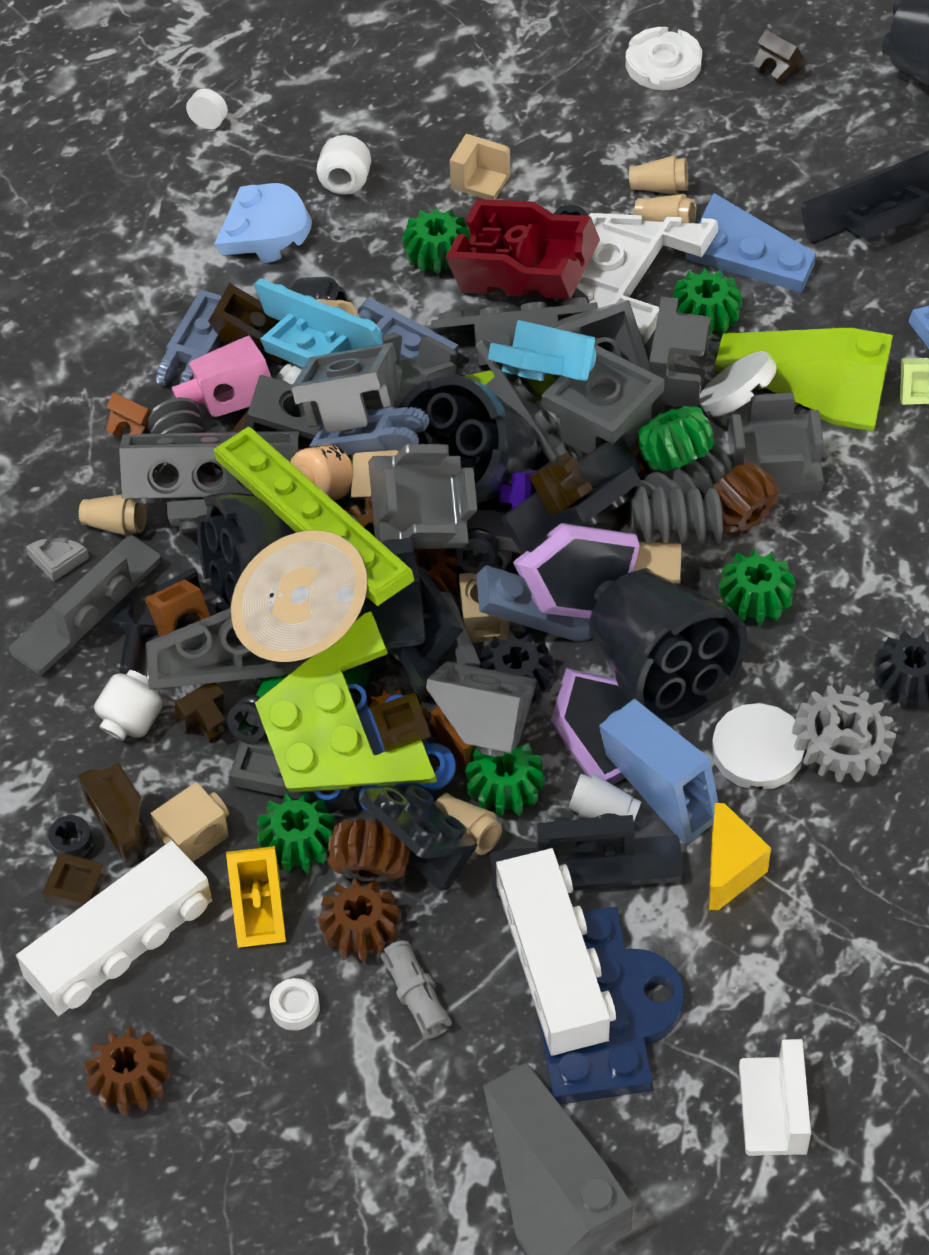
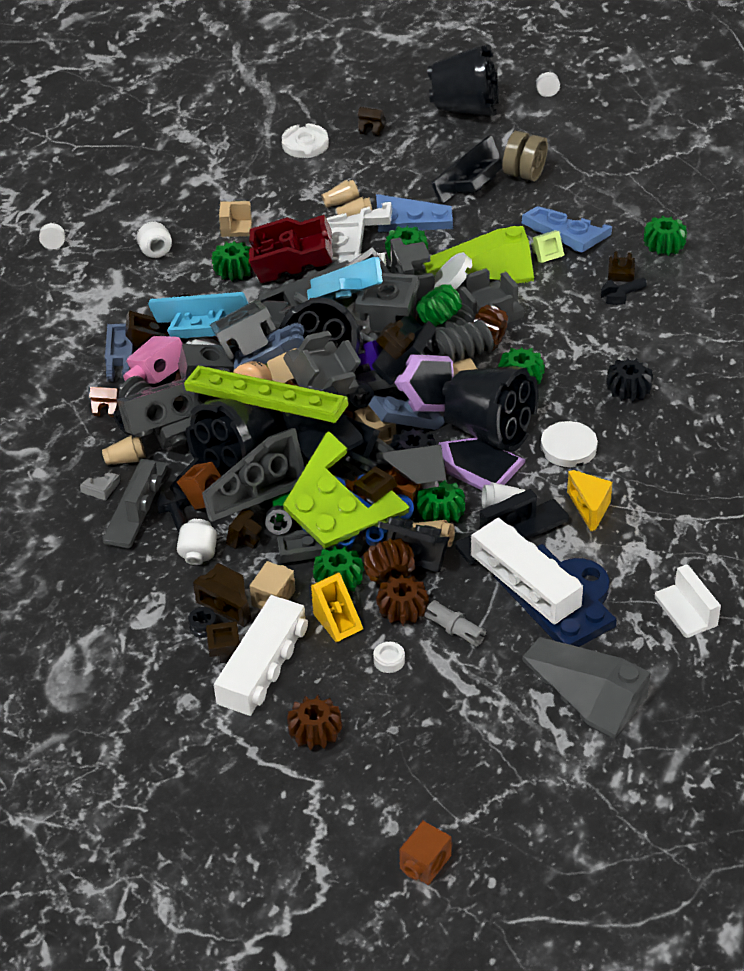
camera: 25 degrees left, 10 degrees down
(264, 222) = (123, 280): light blue slope -> none
(299, 596) = (285, 434): tan piece -> none
(662, 768) = (529, 464): medium blue slope -> none
(843, 733) = (613, 420): light grey gear -> none

